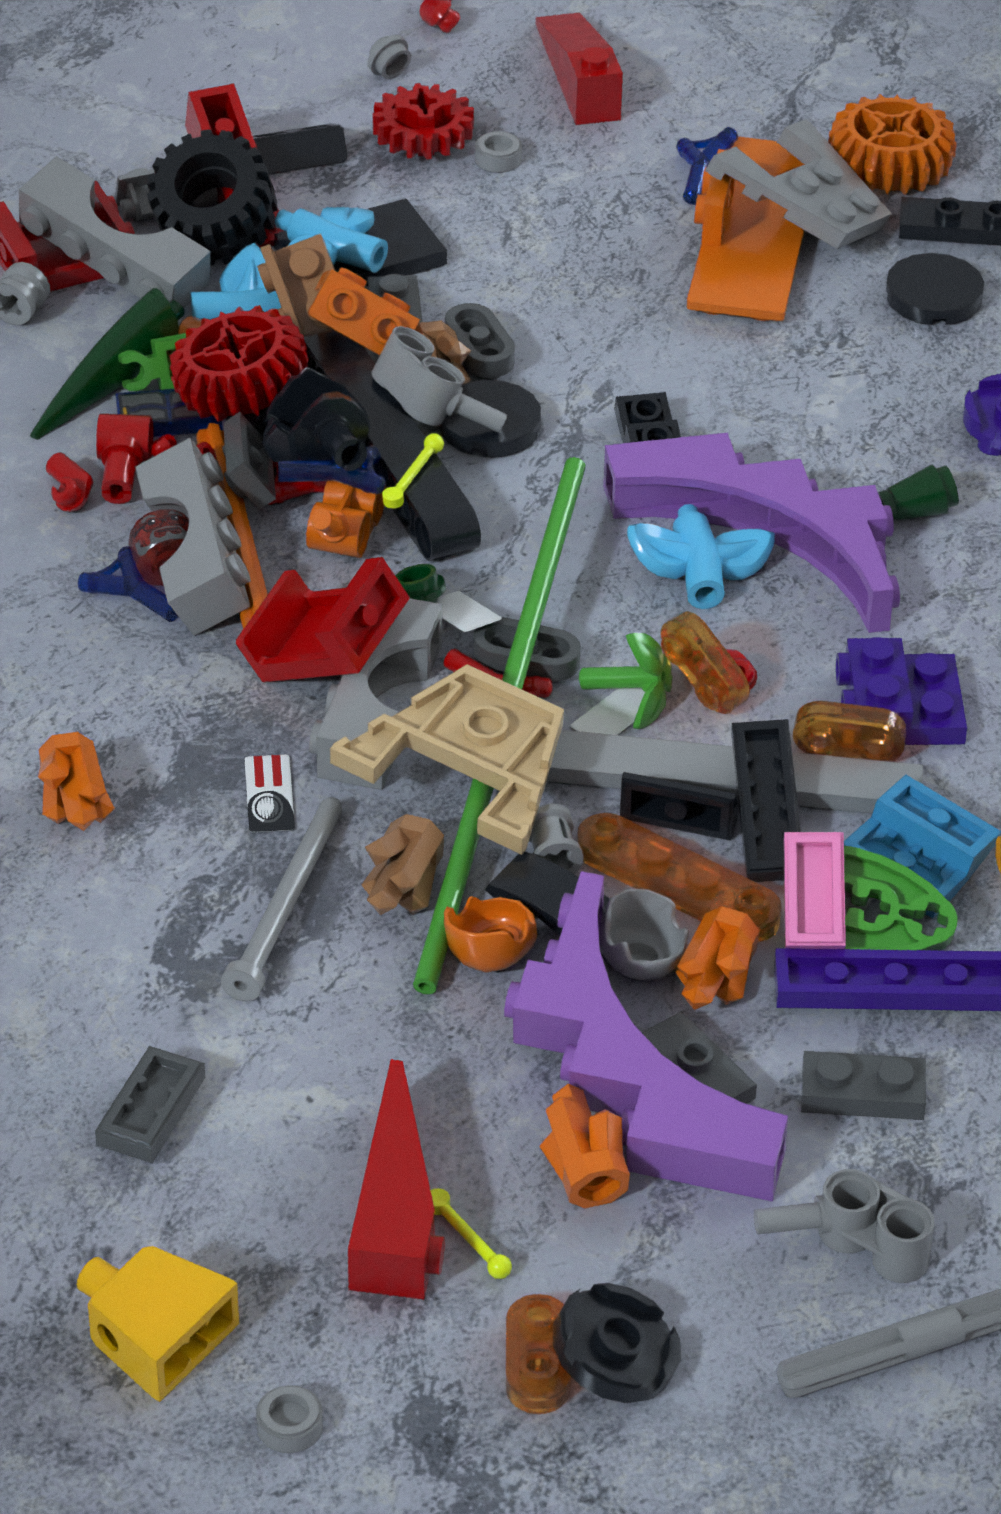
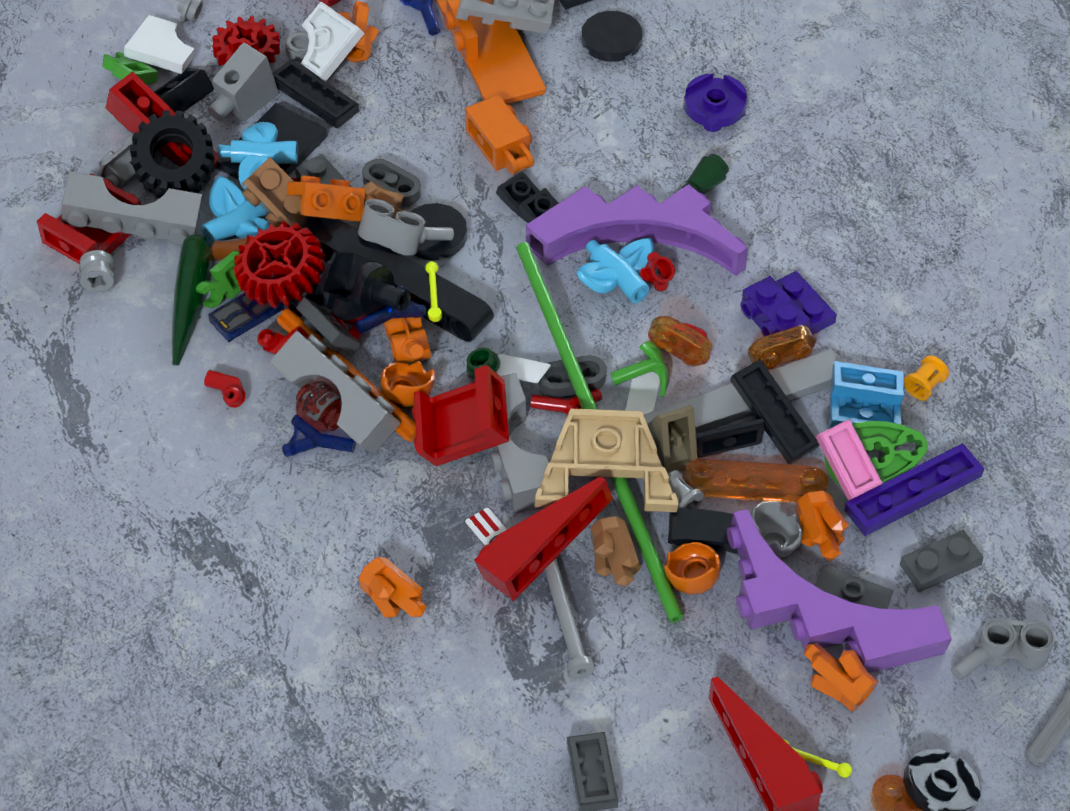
camera: 30 degrees left, 10 degrees up
(122, 445) = (243, 348): red pin -> none
(257, 101) = (122, 67): none -> bright green plate
(294, 552) = (402, 380): none -> orange hair
(307, 803) = (533, 544): none -> red slope
(312, 83) = (159, 46): none -> white tile
(373, 158) = (243, 85): none -> light grey torso
(466, 206) = (315, 94): none -> black plate
(531, 144) = (329, 40): none -> white tile
(570, 160) = (362, 49): none -> orange rock
(594, 765) = (675, 438): none -> dark tan slope
(672, 338) = (499, 134): none -> orange brick
(756, 563) = (665, 268): none -> red plate

